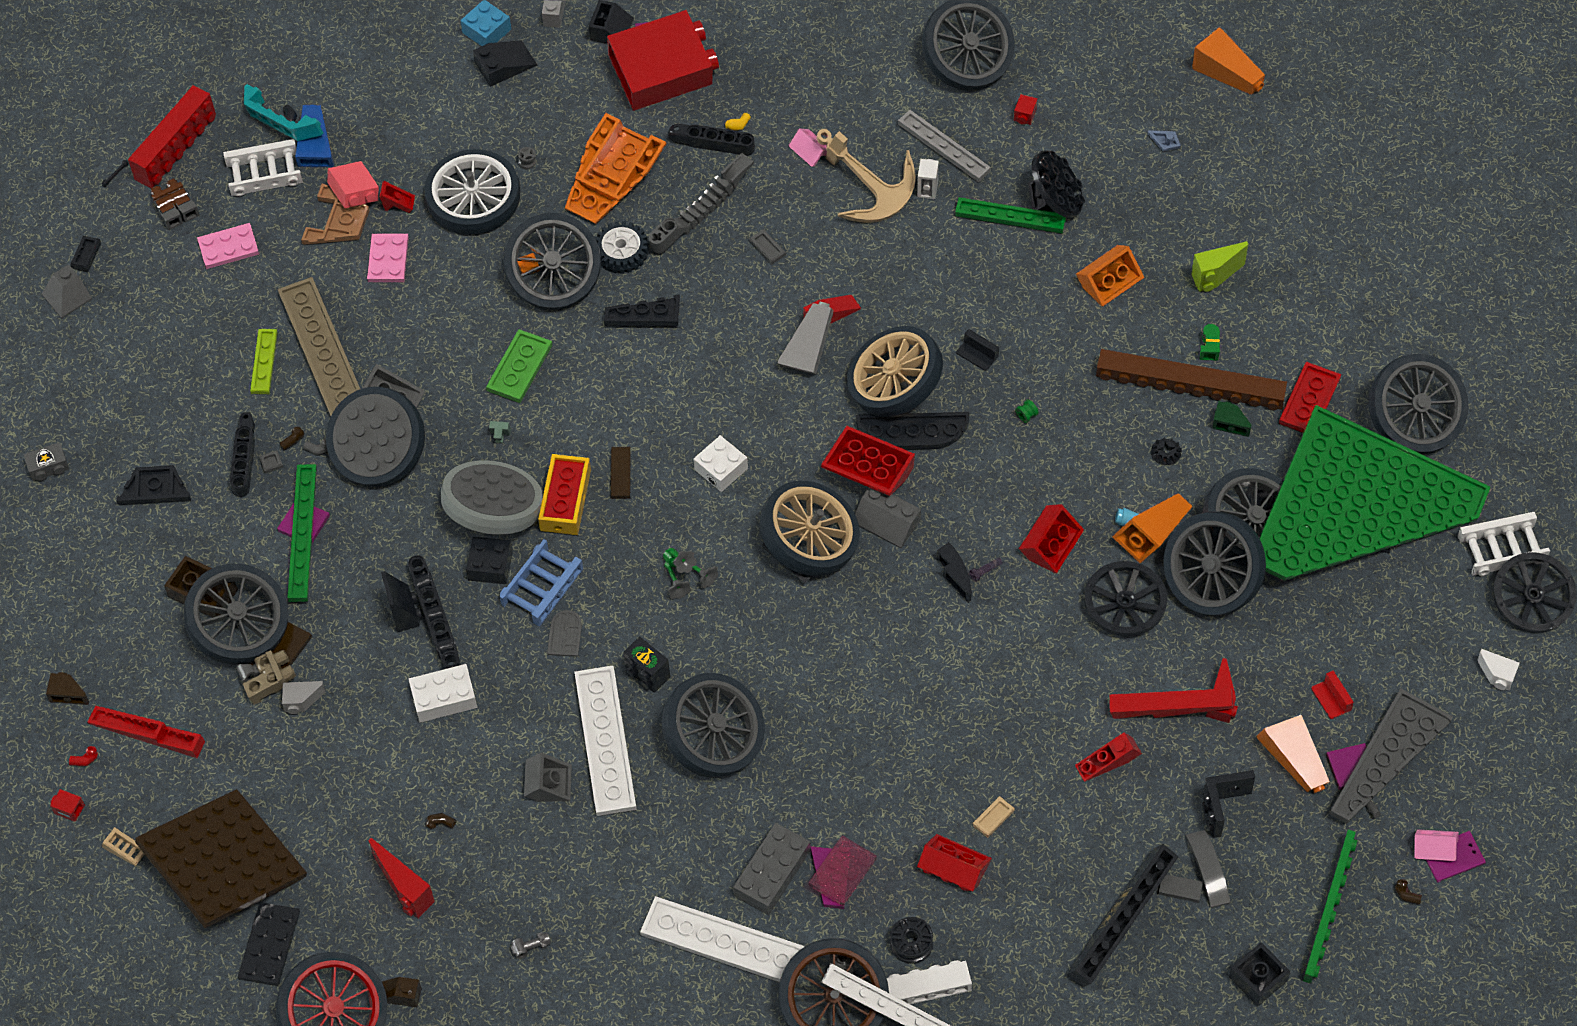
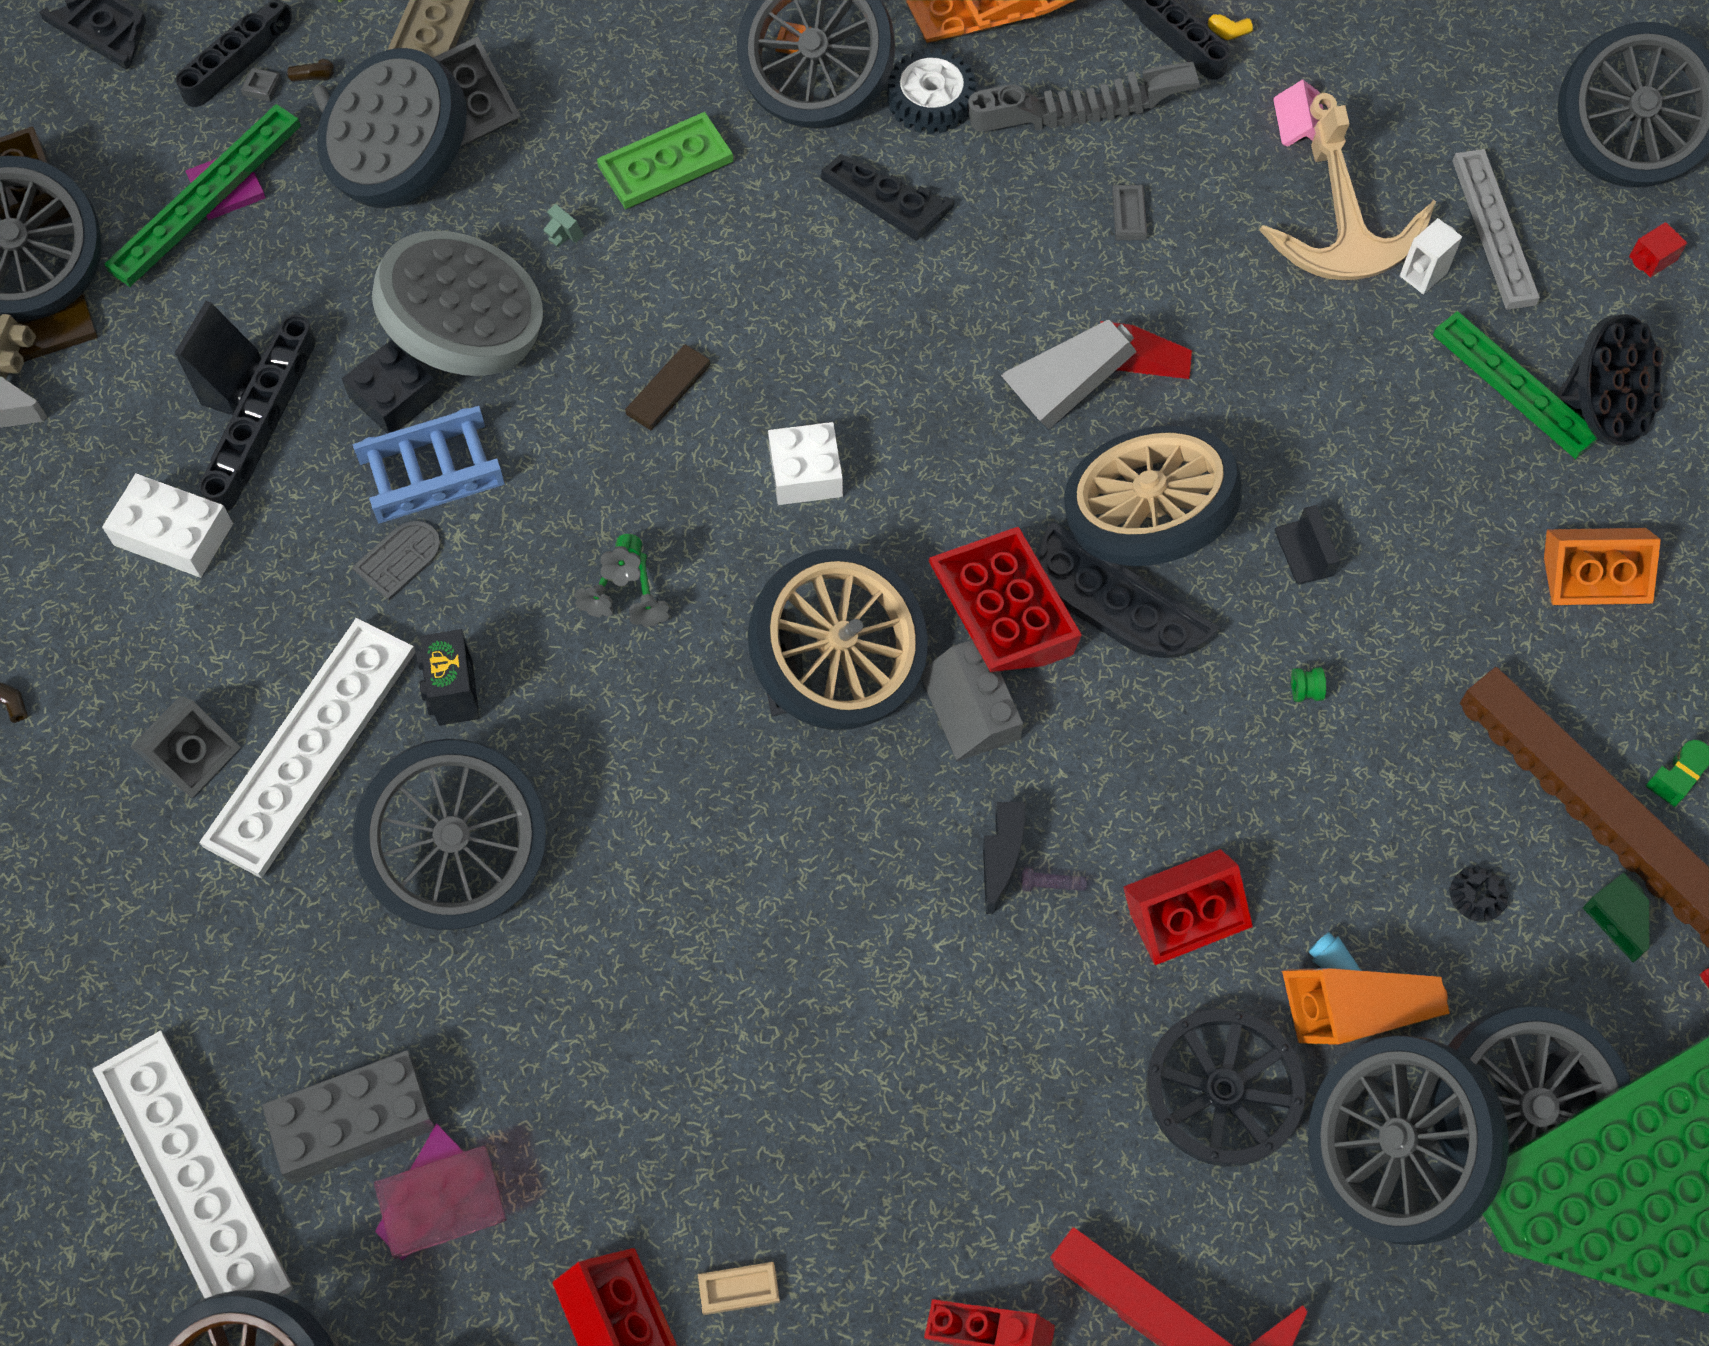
camera: 35 degrees right, 5 degrees up
(564, 494) = (562, 365): brick -> none

